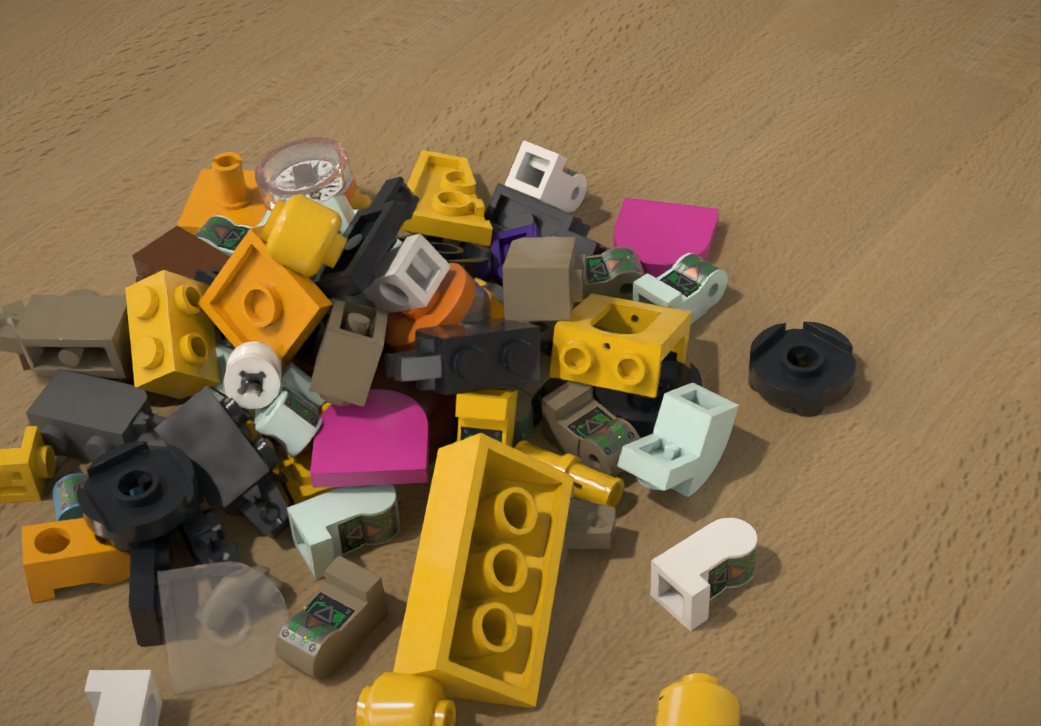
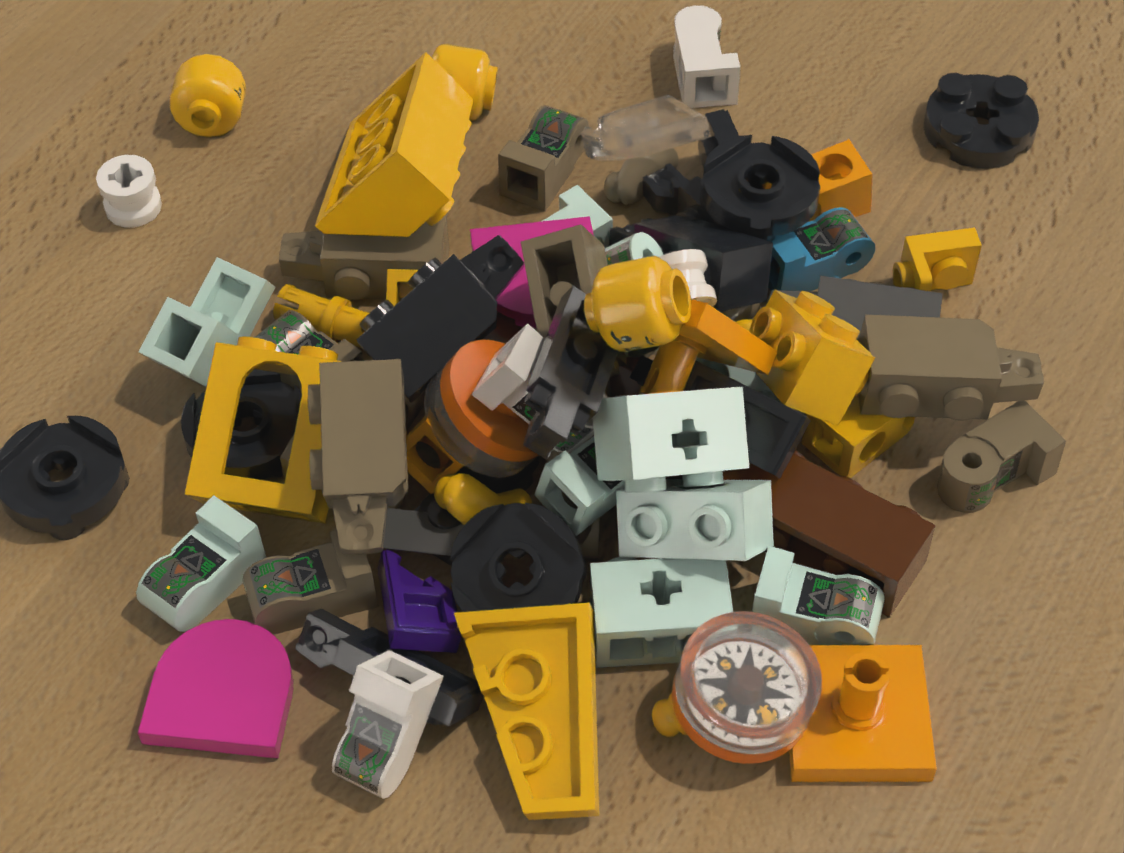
camera: 170 degrees right, 10 degrees up
(702, 567) = (192, 228): white leg -> none
(765, 629) = (129, 191): none -> white wheel

